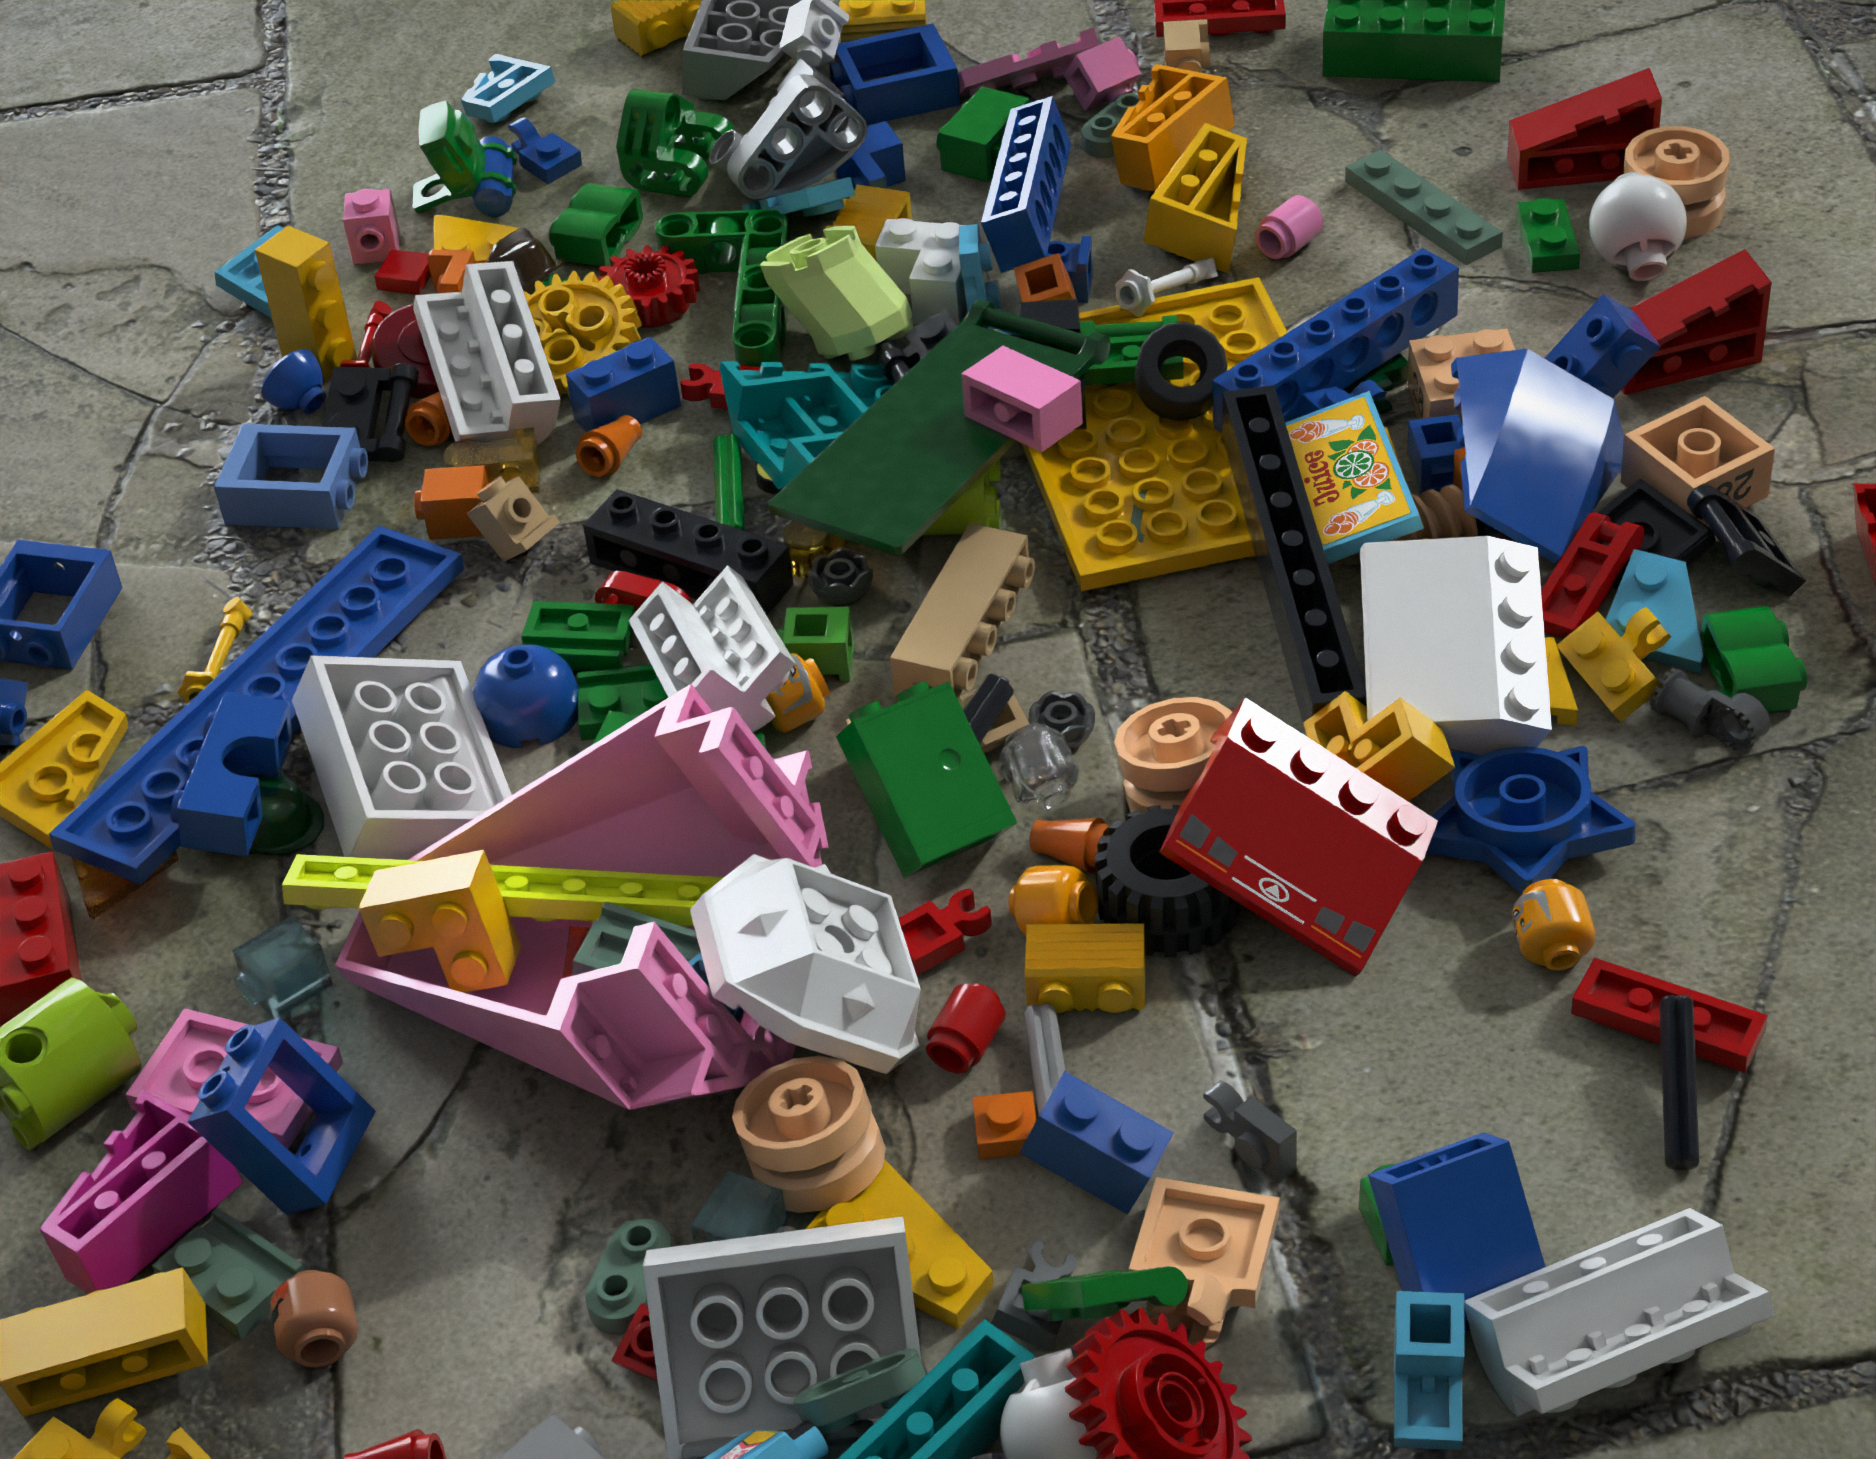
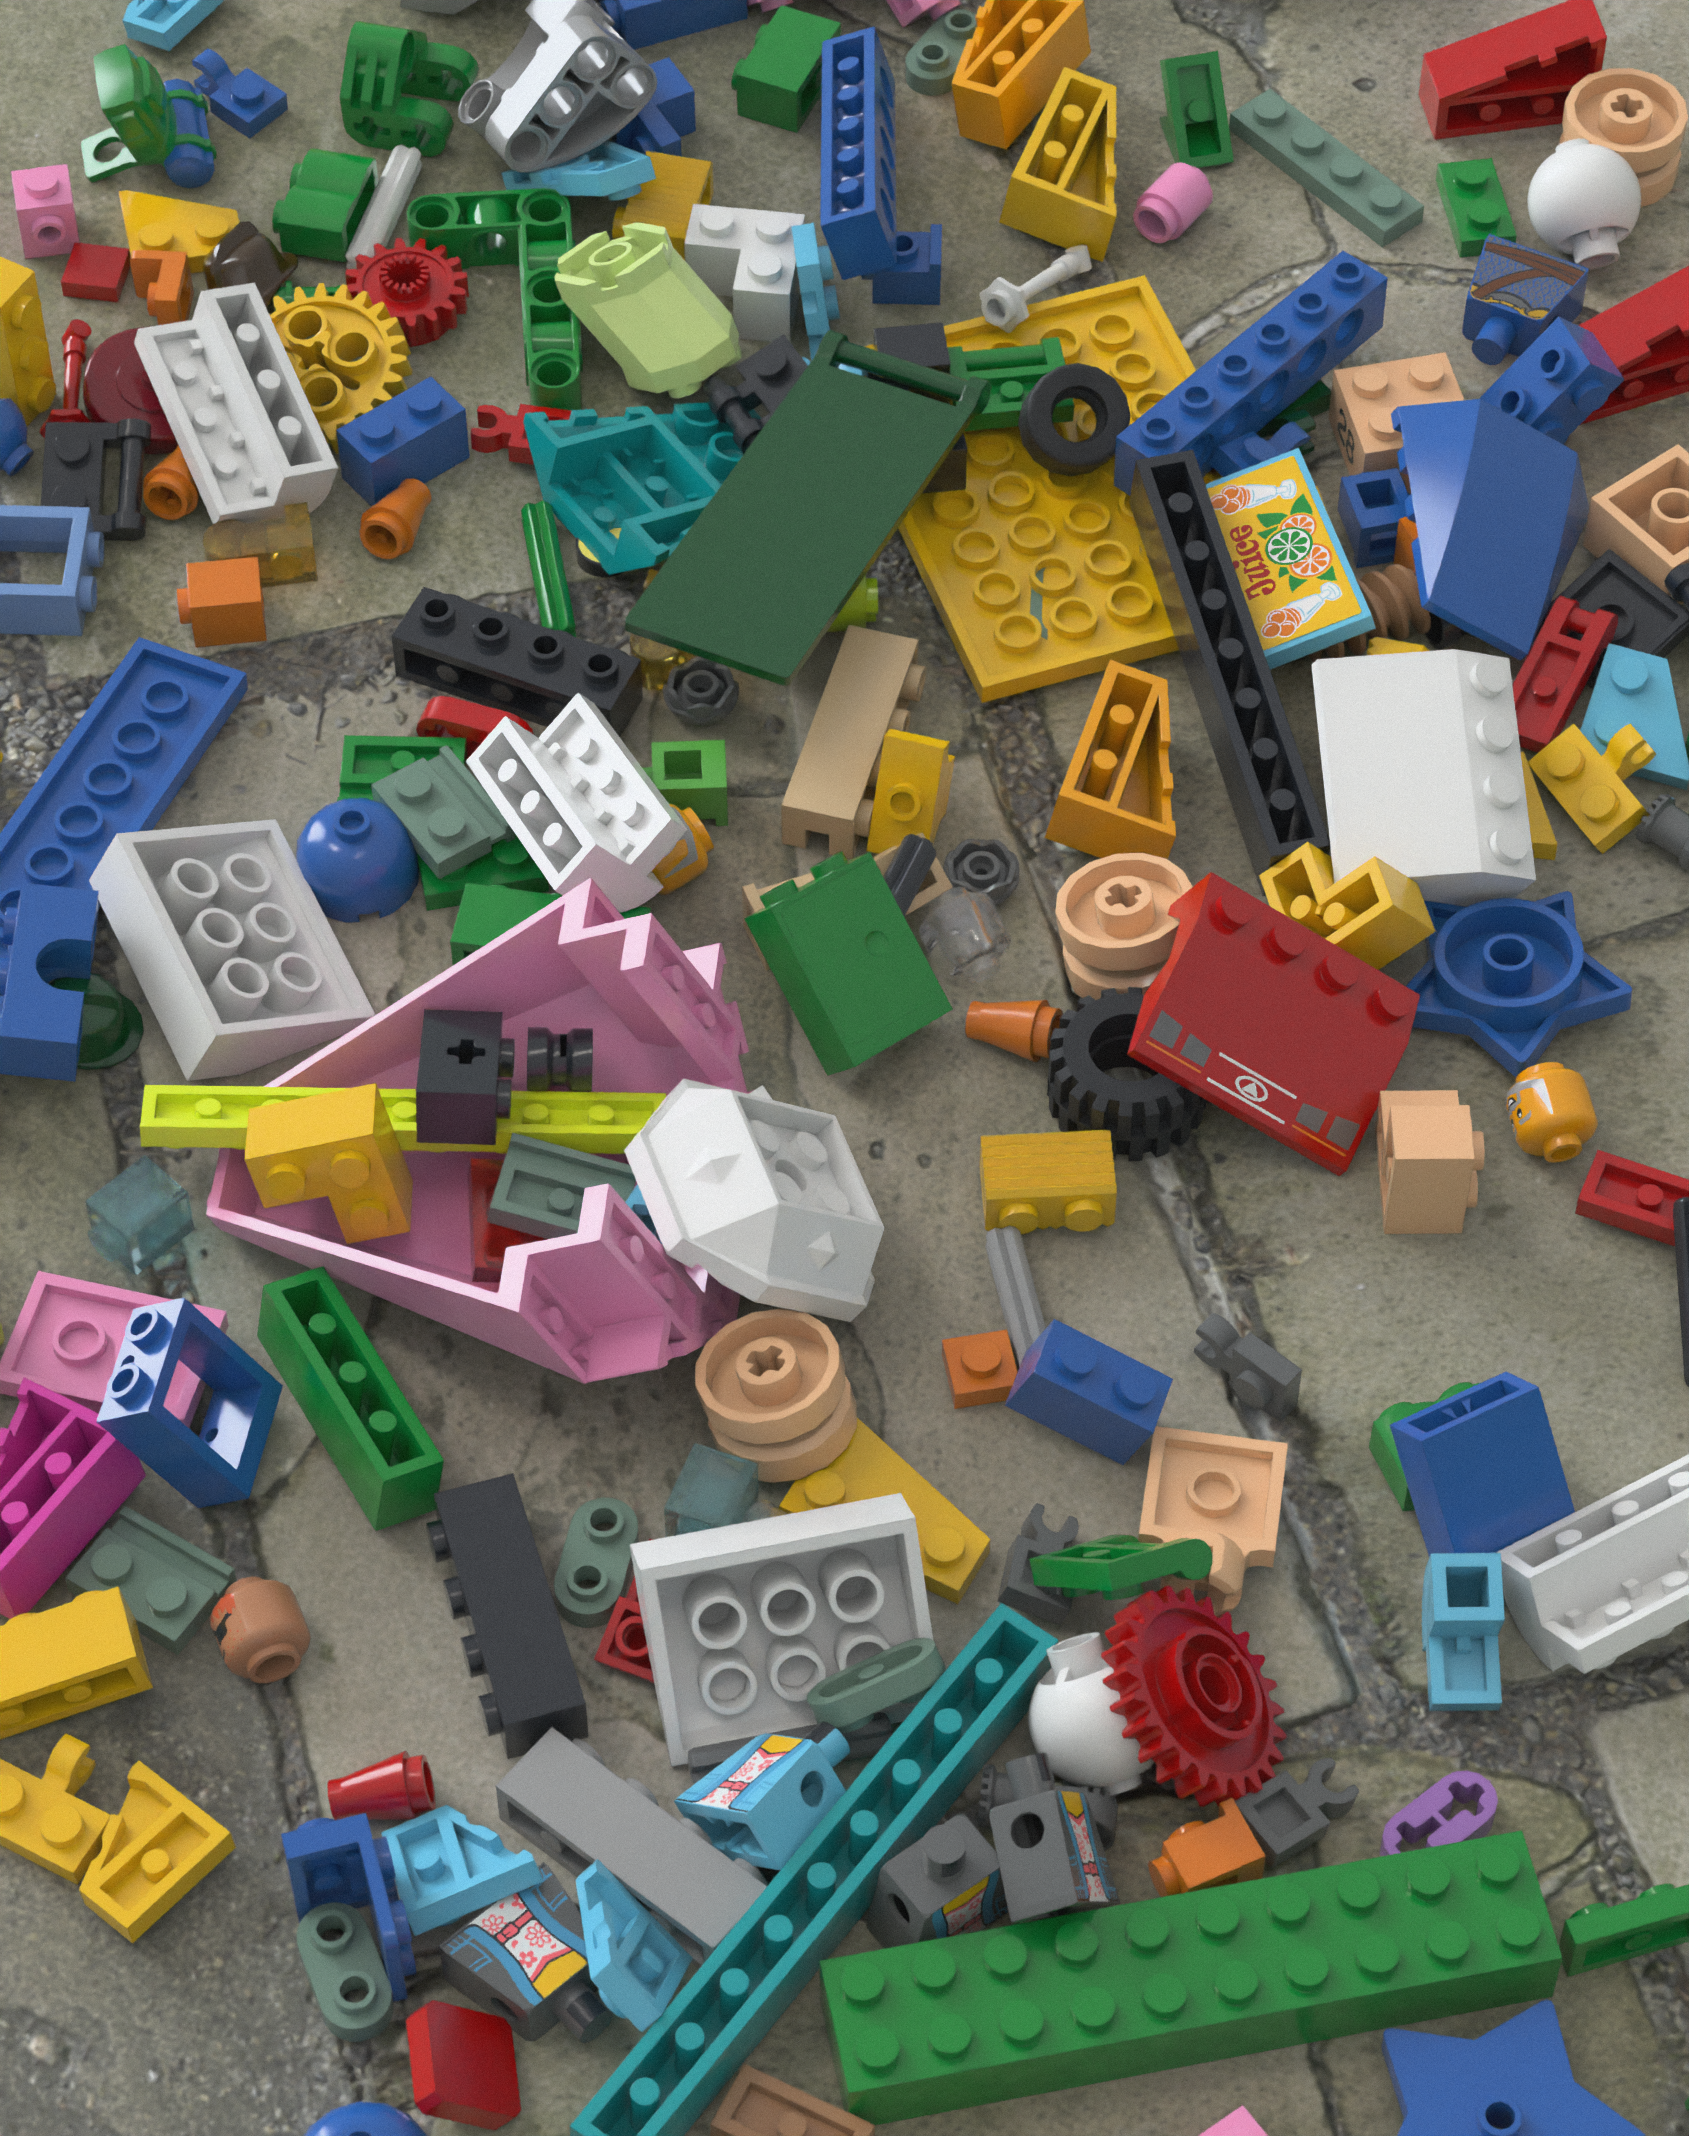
camera: 10 degrees left, 10 degrees up
(429, 1123) = (349, 1398): none -> green brick
(510, 517) = (300, 626): tan brick -> none
(535, 1313) = (508, 1613): none -> black brick
(566, 854) = (461, 1077): none -> black brick
(602, 658) = (443, 811): none -> sand green plate
(642, 229) = (385, 203): none -> white axle
(659, 846) = (559, 1059): none -> black wheel
(938, 934) = (882, 1142): red plate -> none
(965, 1027) = (923, 1258): red brick -> none
(1007, 644) = (909, 789): none -> yellow brick
(1022, 398) = (906, 477): bright pink brick -> none
(1044, 280) = (896, 296): orange brick -> none
(1053, 897) = (1002, 1100): light orange head -> none
(1187, 636) = (1120, 772): none -> light orange wedge
(1315, 159) = (1195, 110): none -> green slope
(1432, 963) = (1426, 1161): none -> light nougat brick
(1569, 287) = (1518, 297): none -> torso

